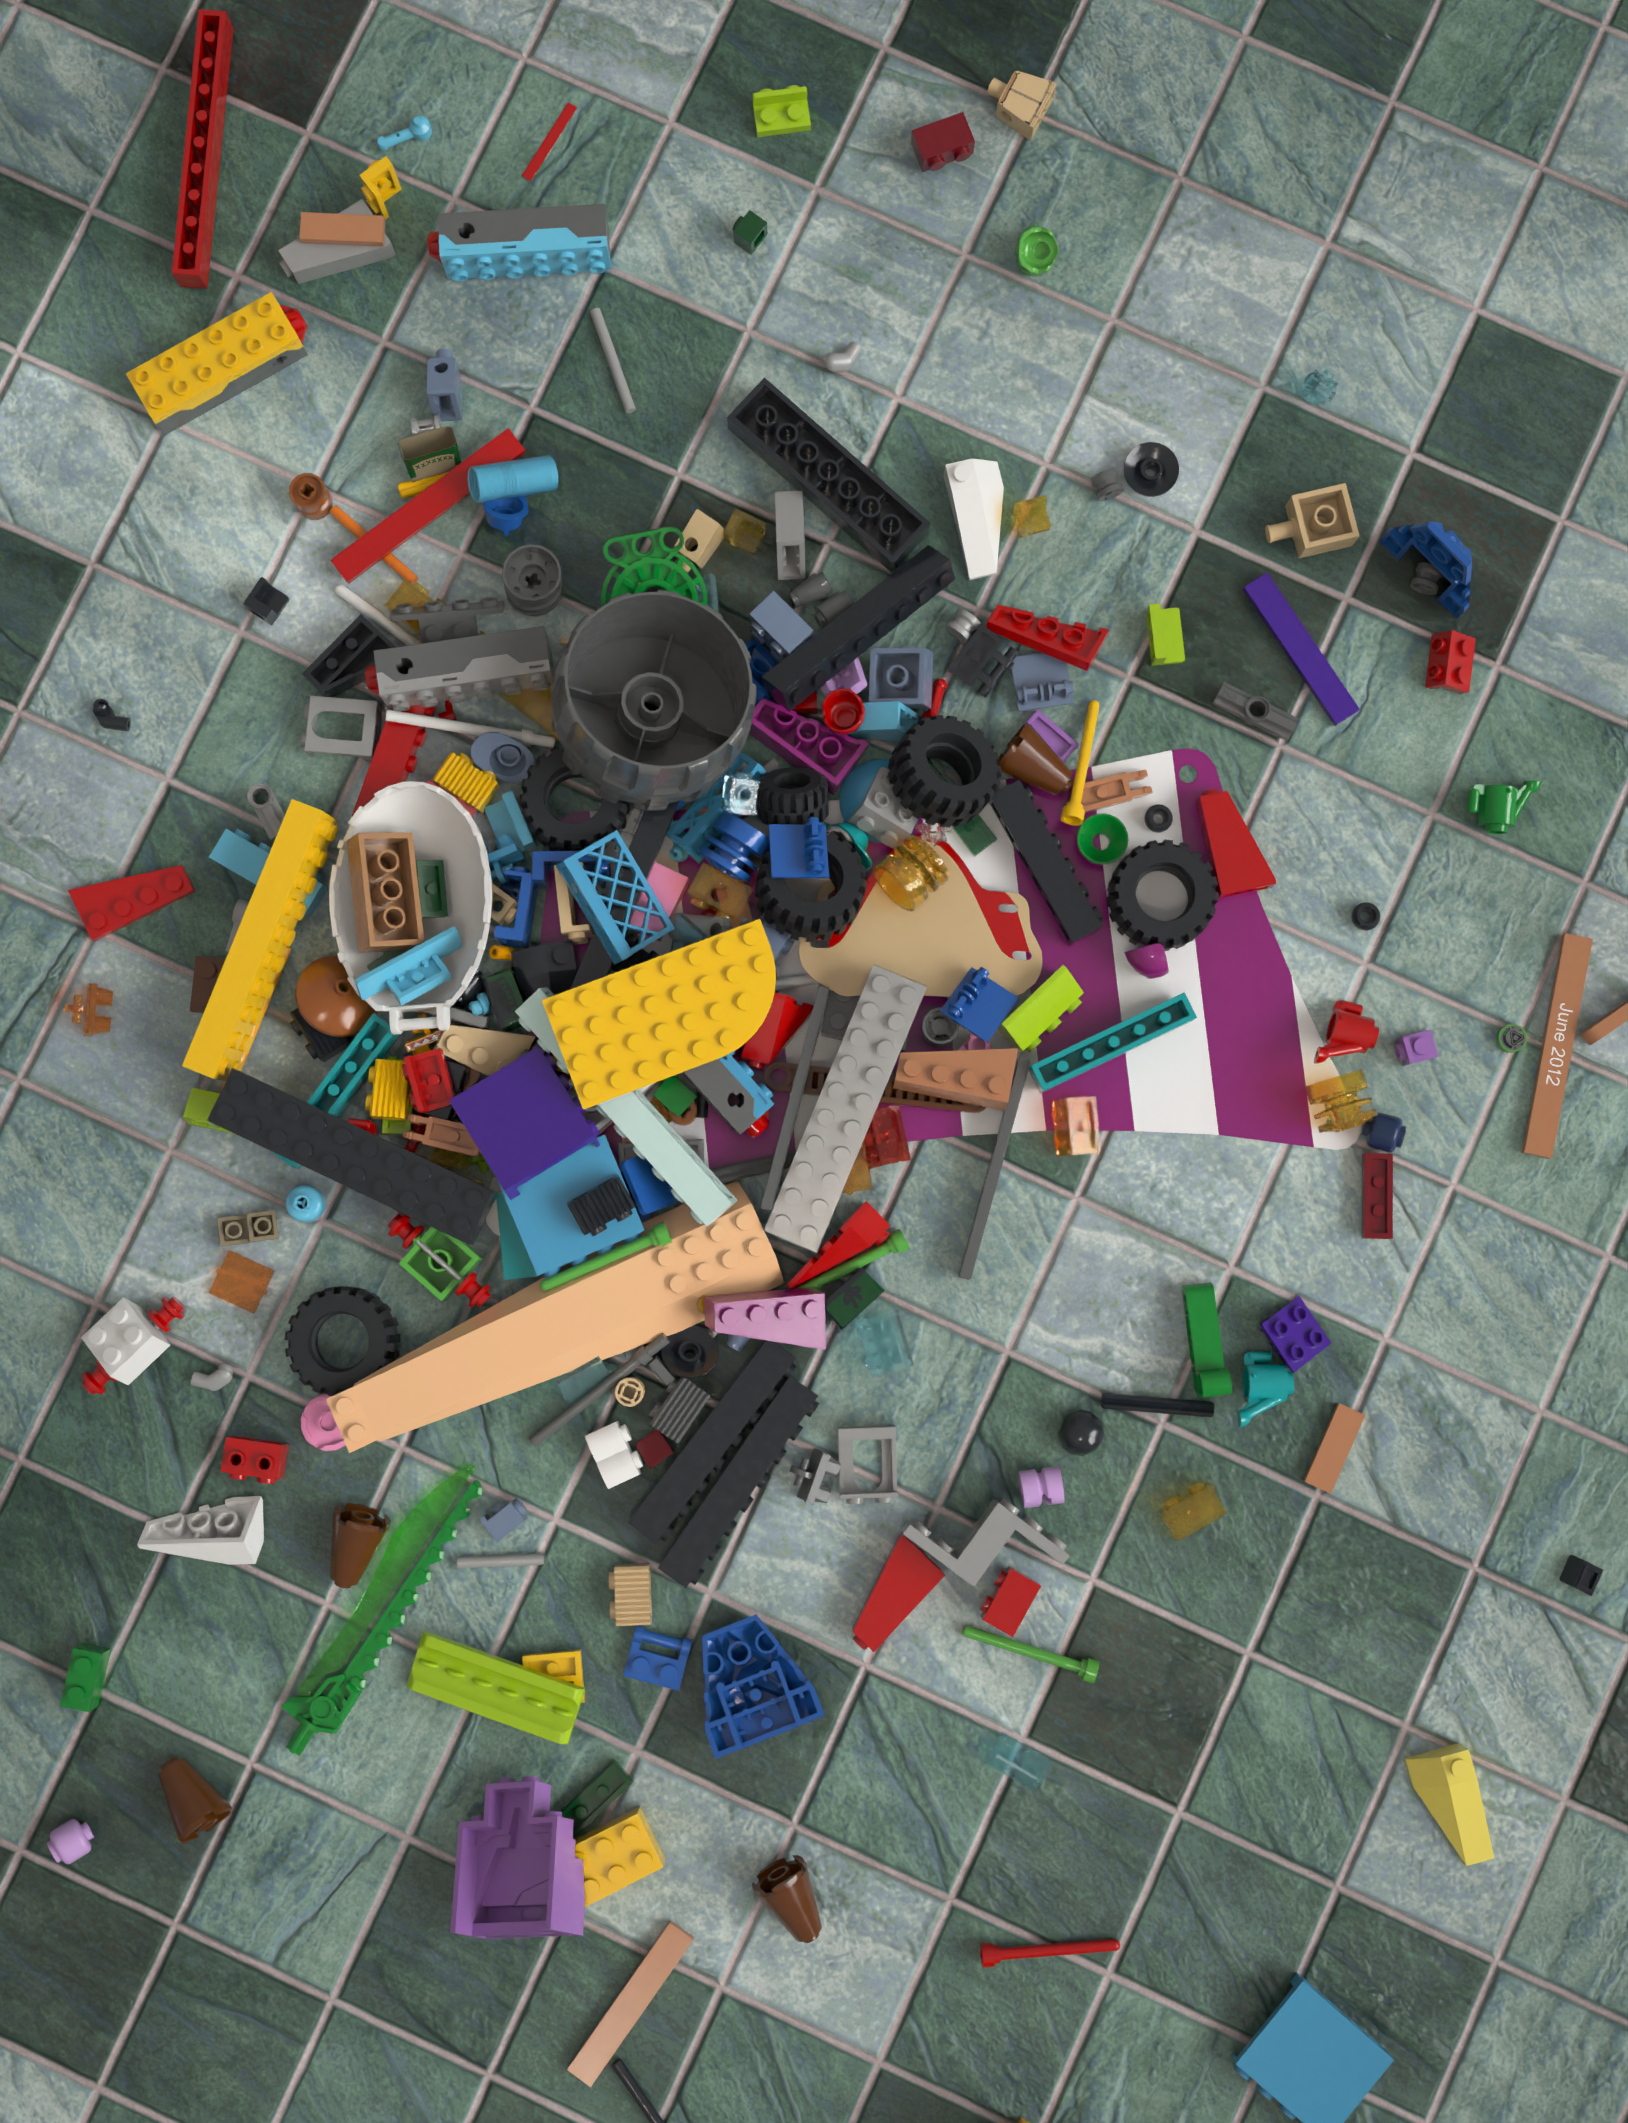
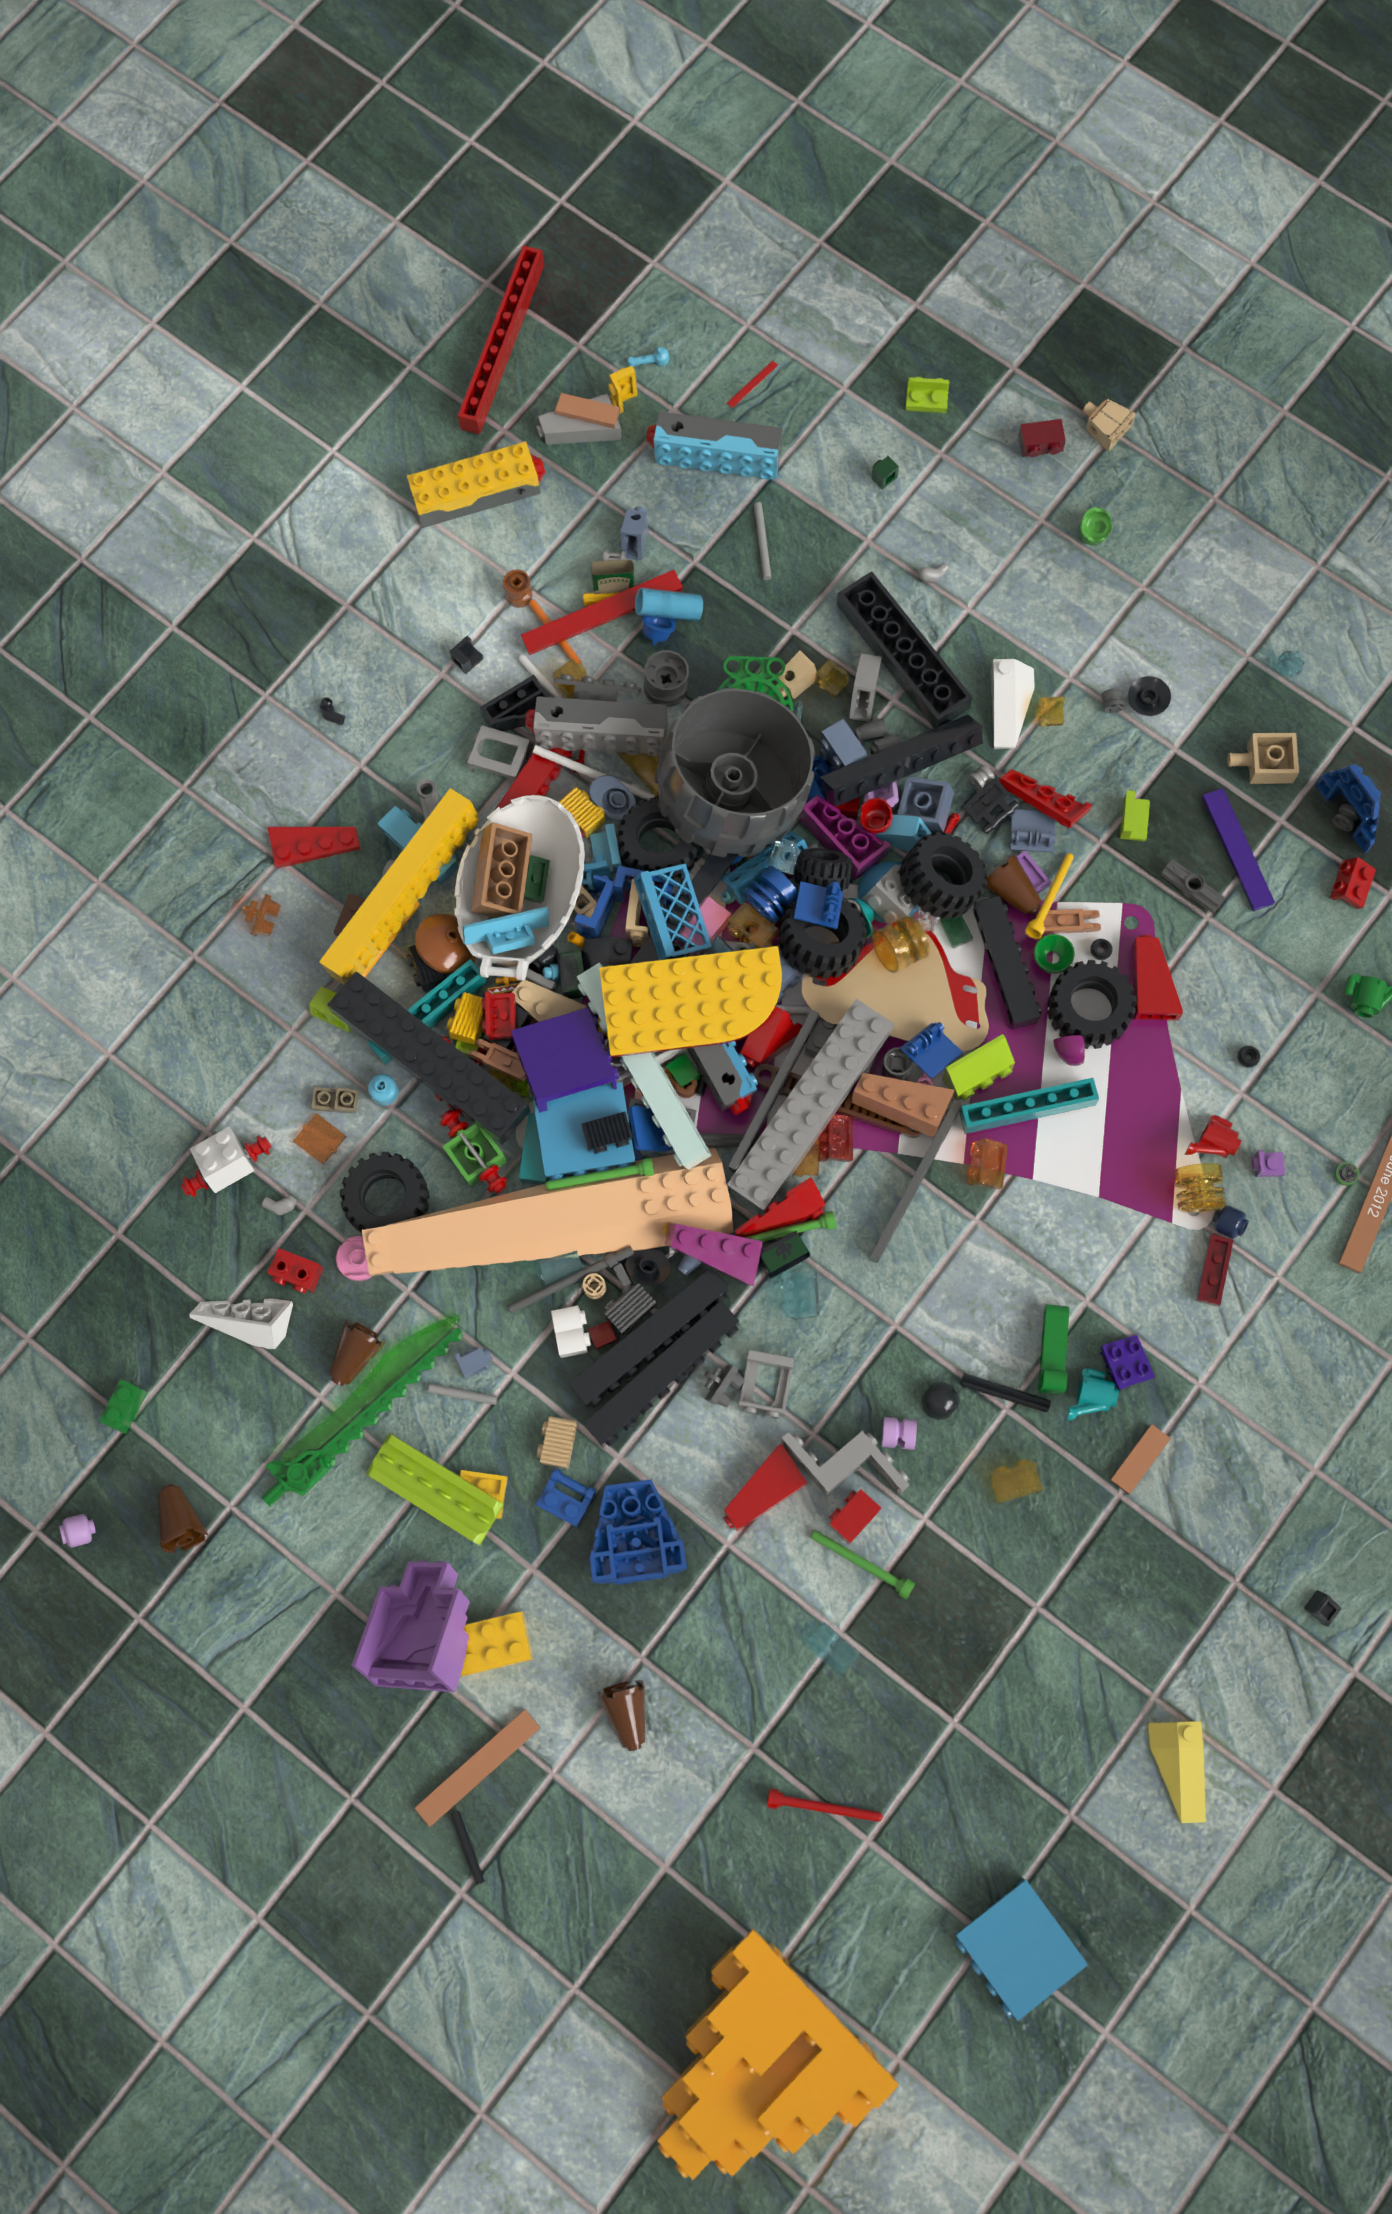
camera: 20 degrees right, 10 degrees down
(596, 1796) = (492, 1595): dark green tile -> none

